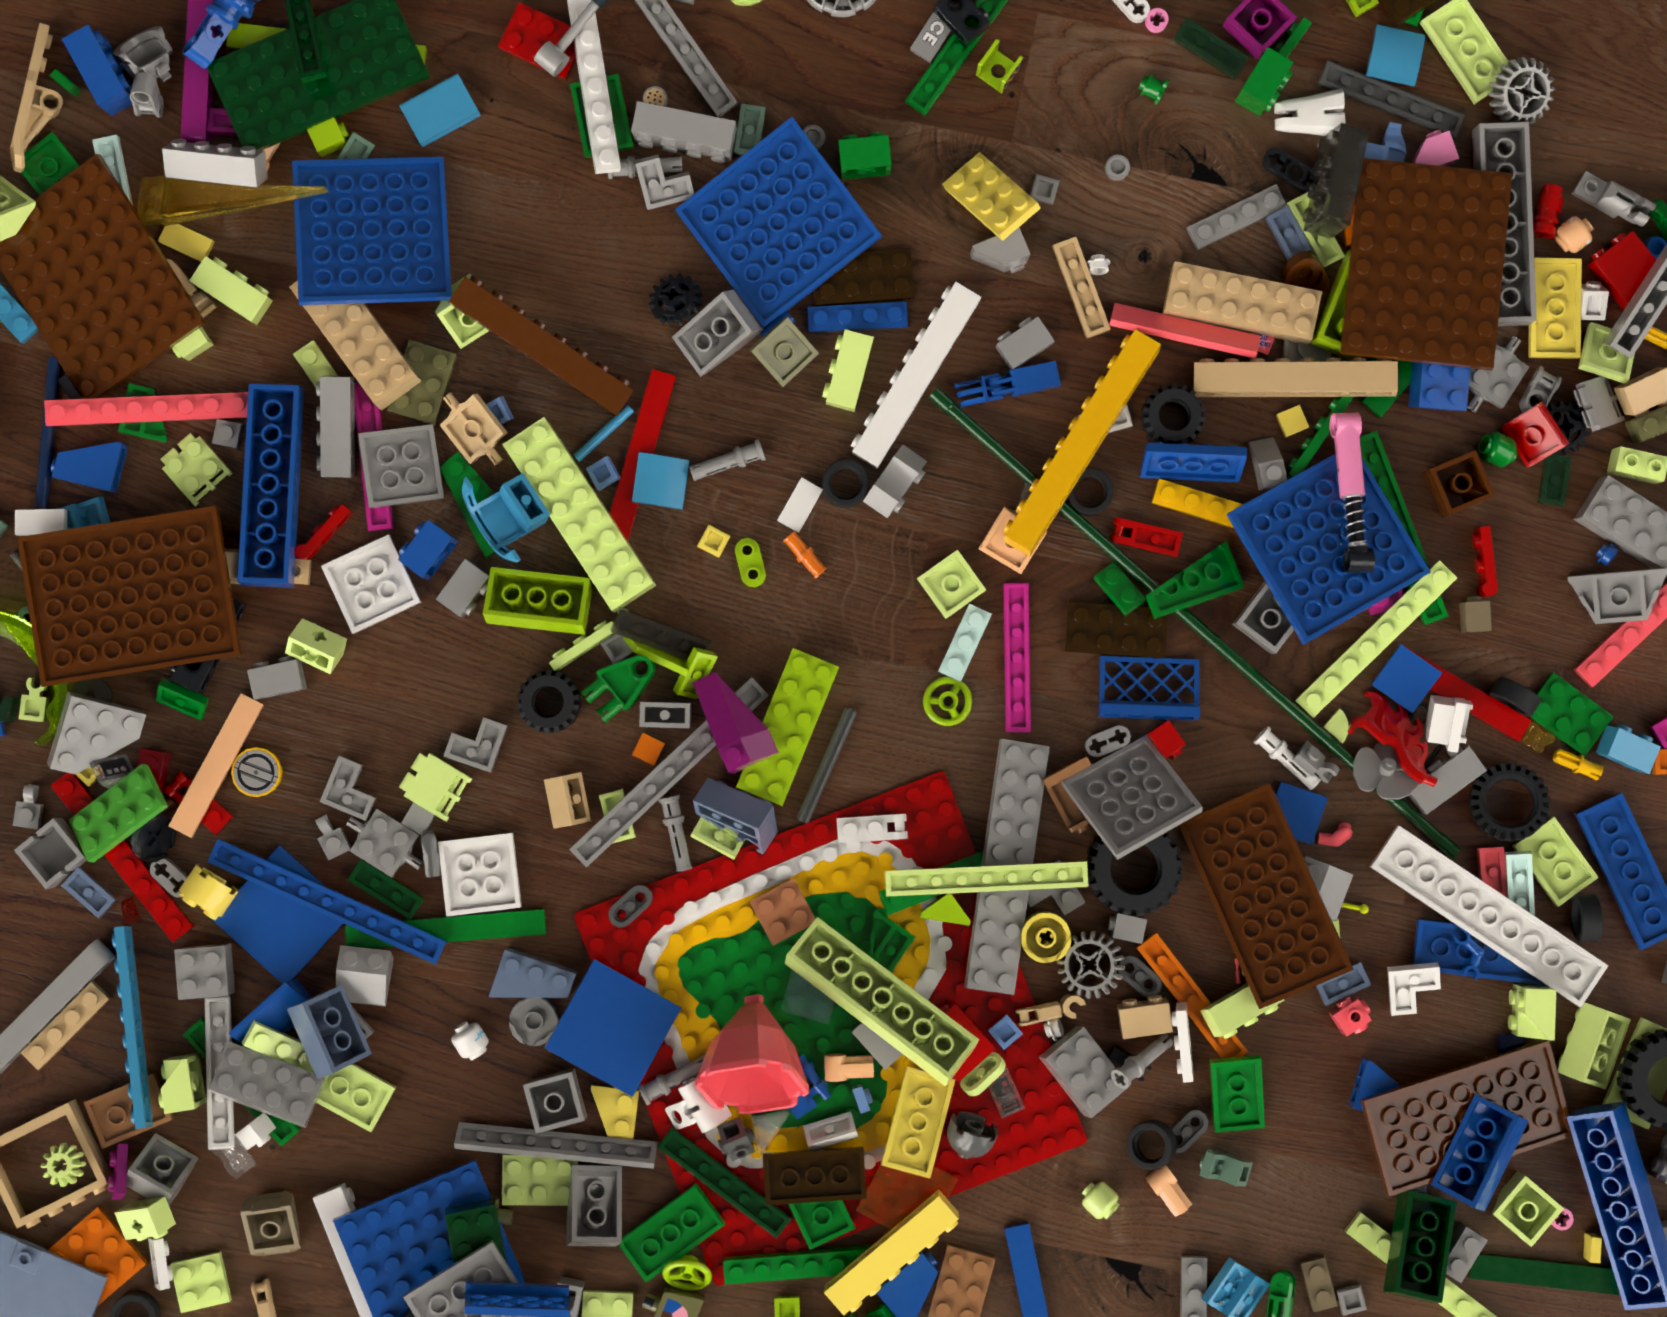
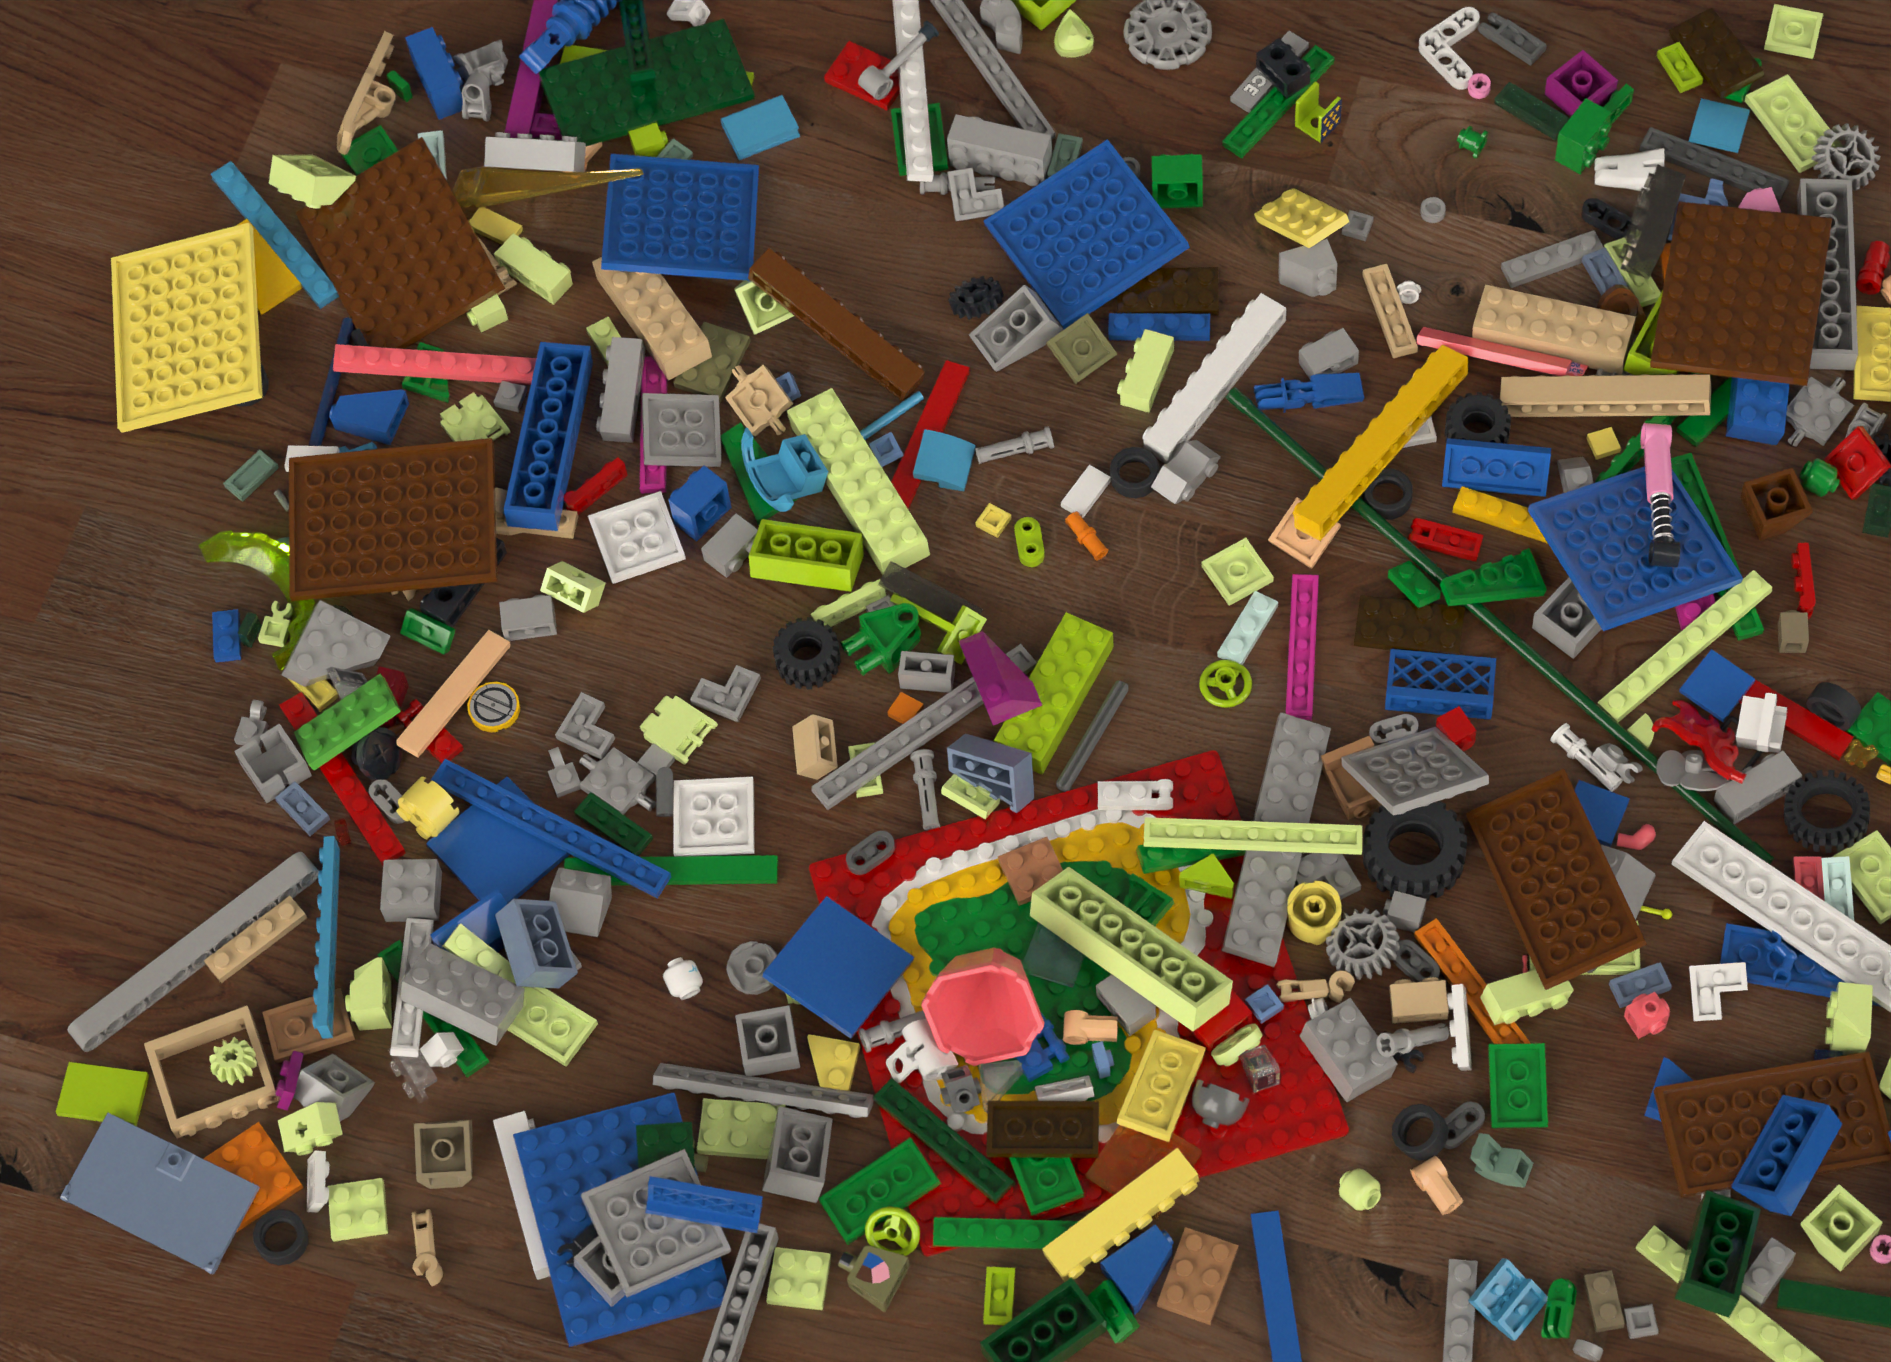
camera: 15 degrees right, 25 degrees down
(531, 977) = (755, 917): sand blue wedge -> none

